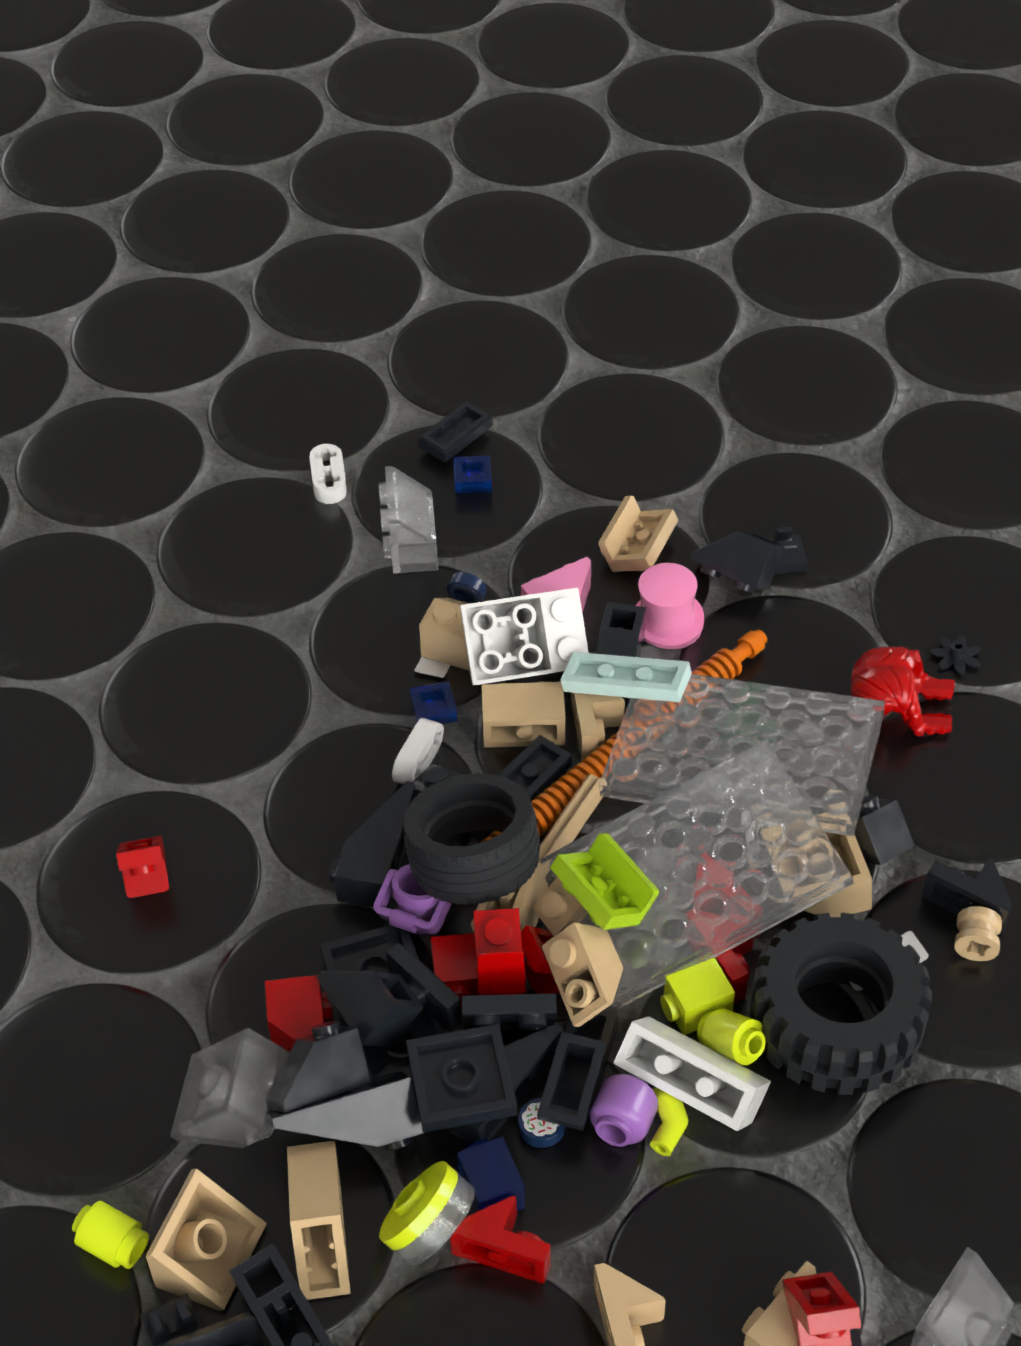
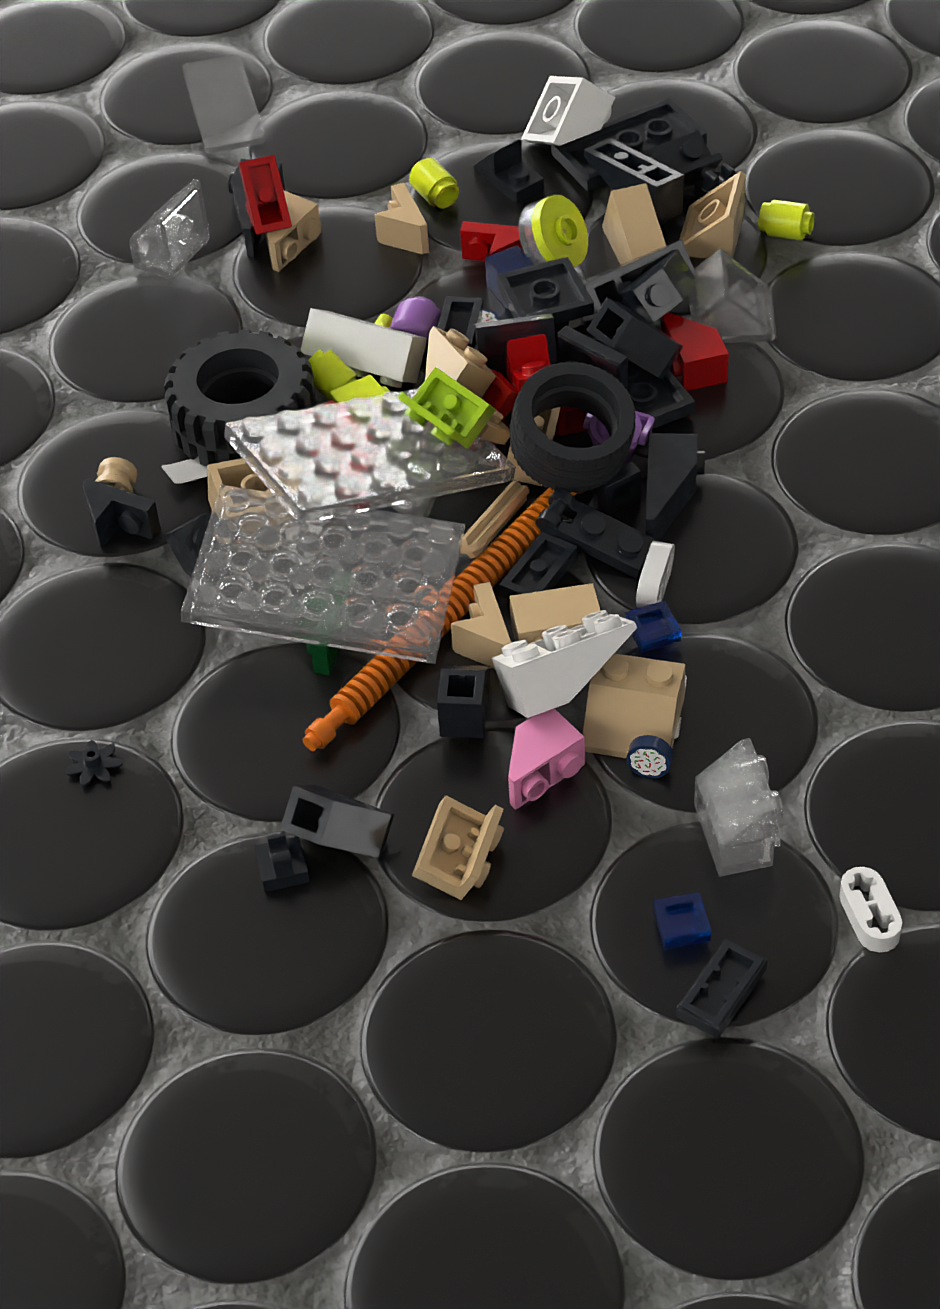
camera: 175 degrees right, 0 degrees up
(143, 866) = (885, 445): red slope -> none
(626, 676) = (449, 607): light aqua plate -> none
(672, 612) = (415, 752): bright pink piece -> none
(898, 678) = (171, 673): red hair -> none

